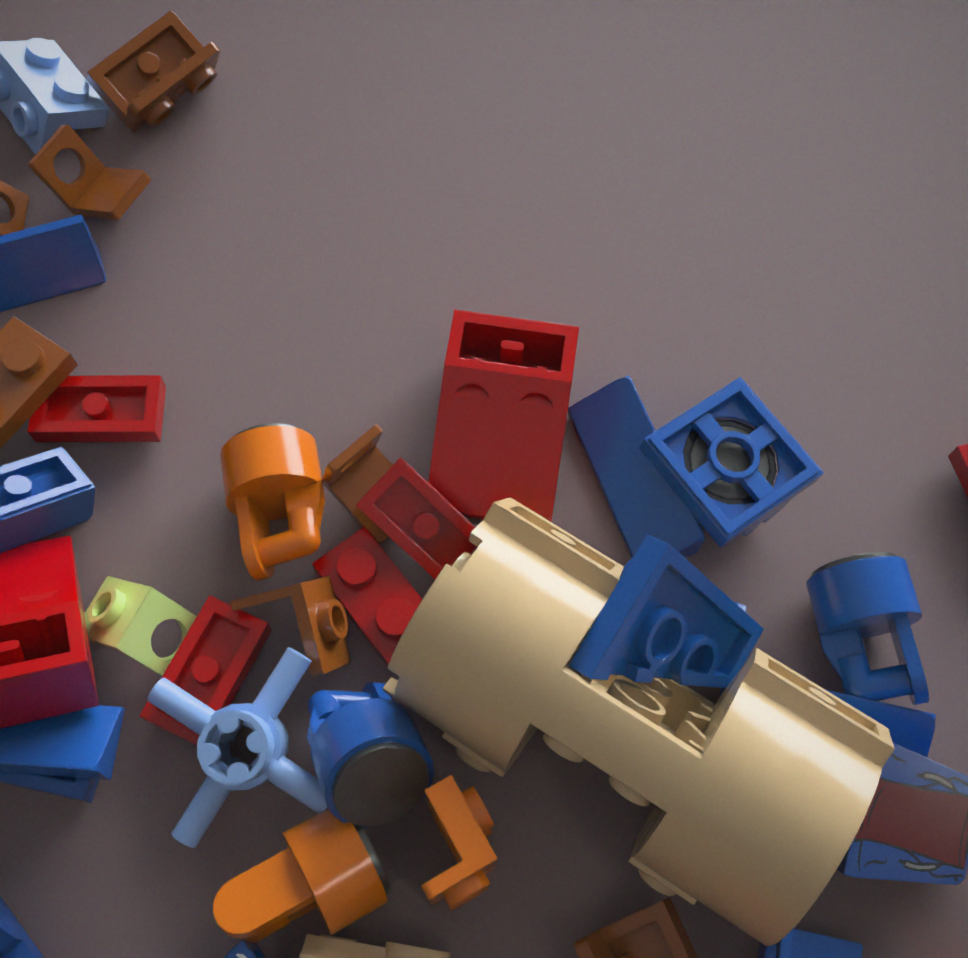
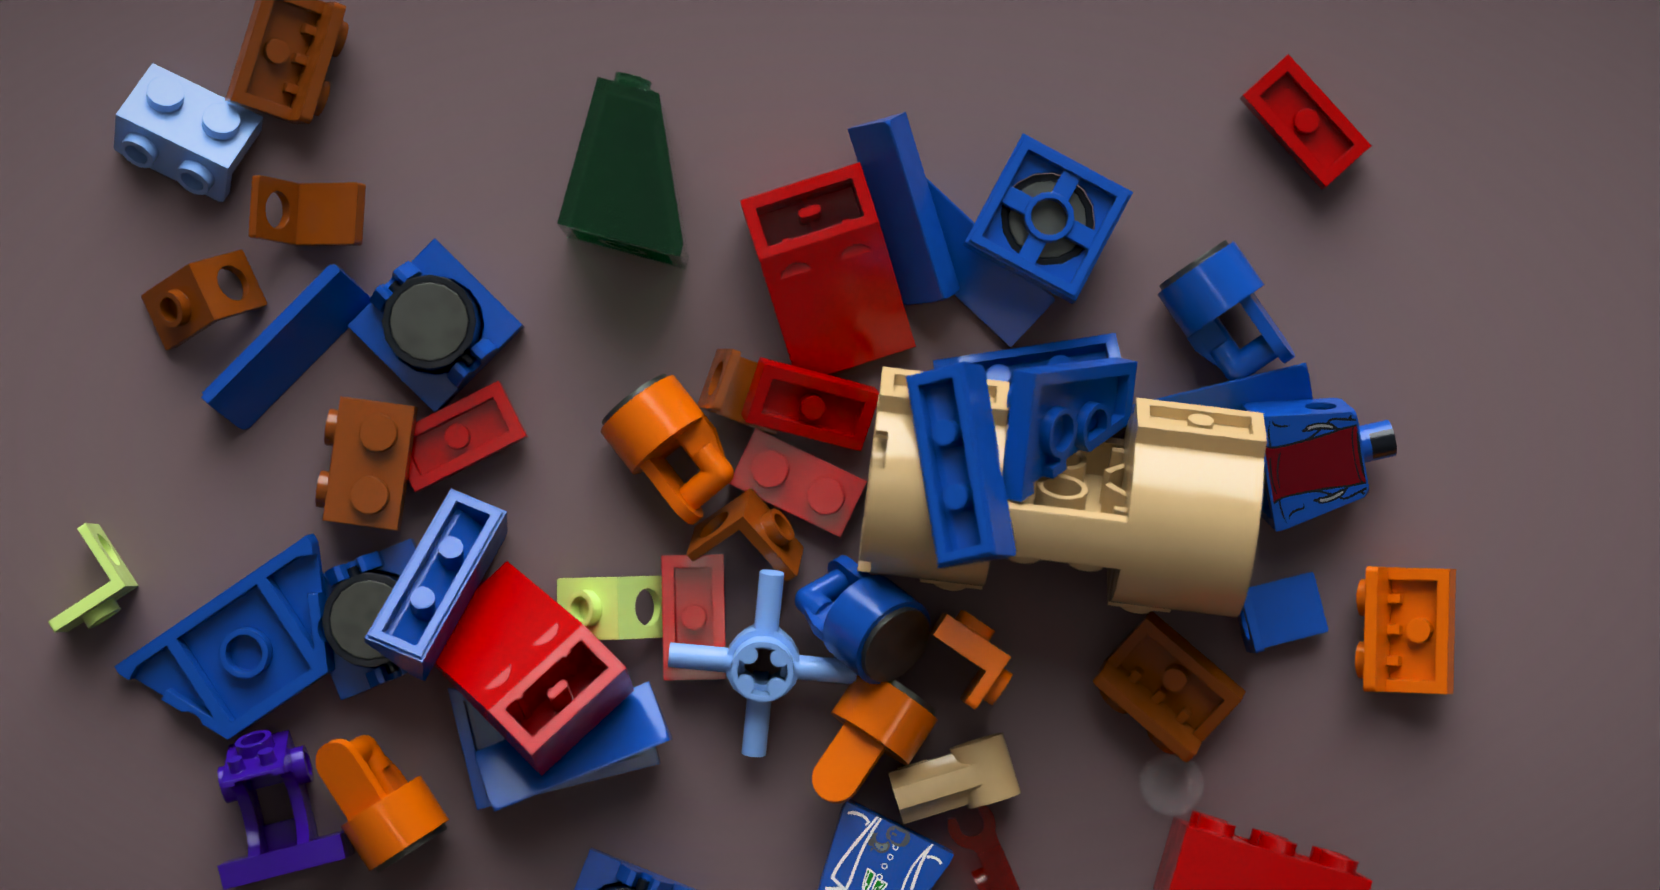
camera: 25 degrees left, 20 degrees up
(138, 310) = (432, 323): none -> piece
(363, 256) = (625, 176): none -> clear green slope
(542, 610) = (961, 465): none -> blue slope
(599, 399) = (905, 209): none -> blue slope

